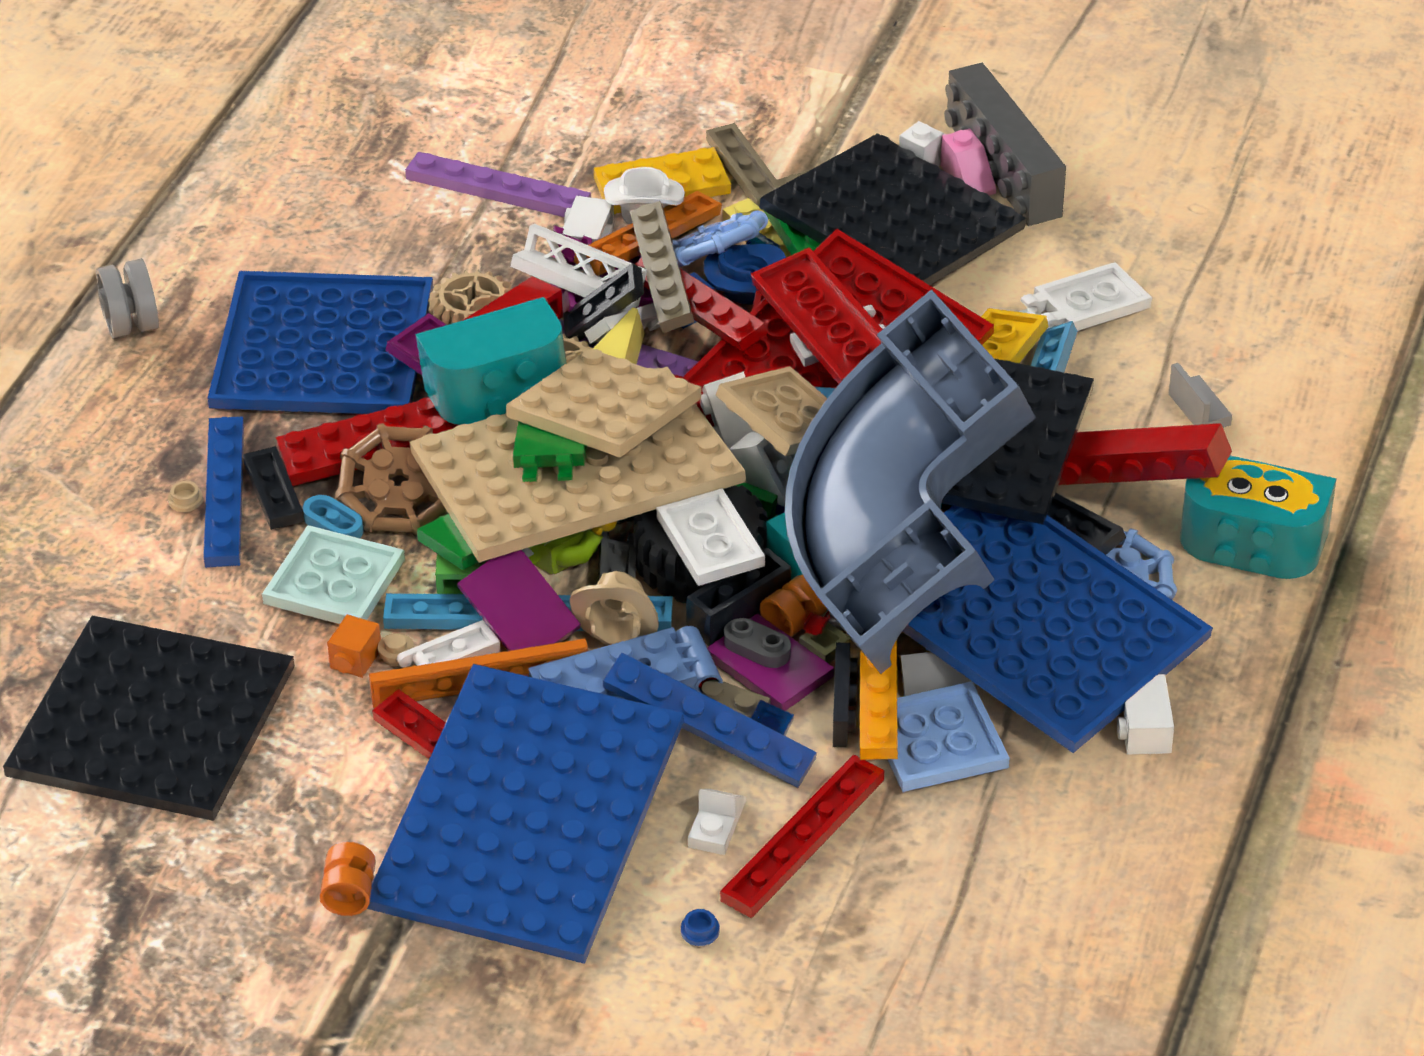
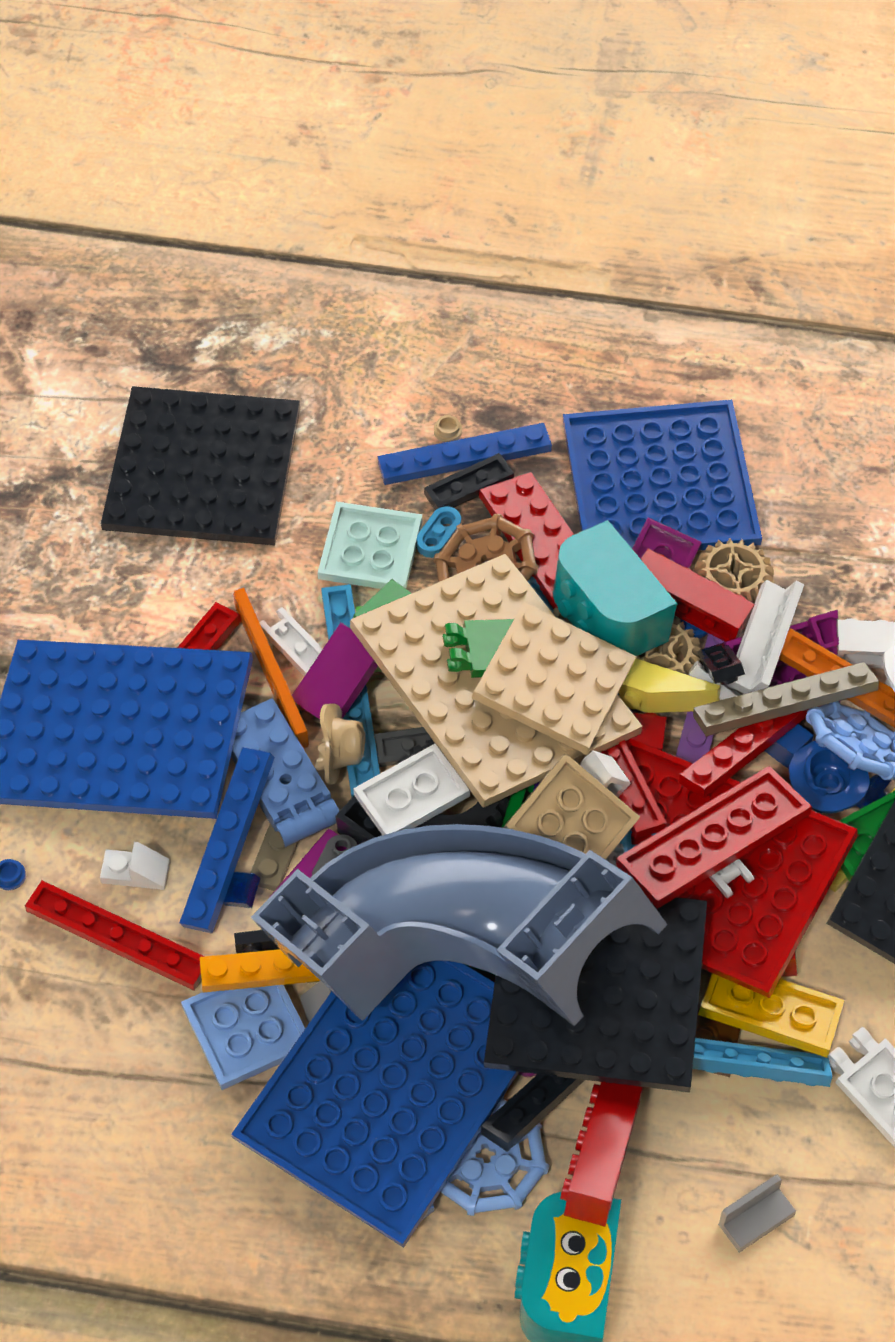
camera: 80 degrees right, 15 degrees up
(127, 298) = (660, 329): light grey wheel -> none
(347, 878) = (20, 621): orange wheel -> none
(354, 645) = (288, 575): orange brick -> none
(392, 645) = (297, 605): tan plate -> none
(1148, 720) = (290, 1201): white slope -> none

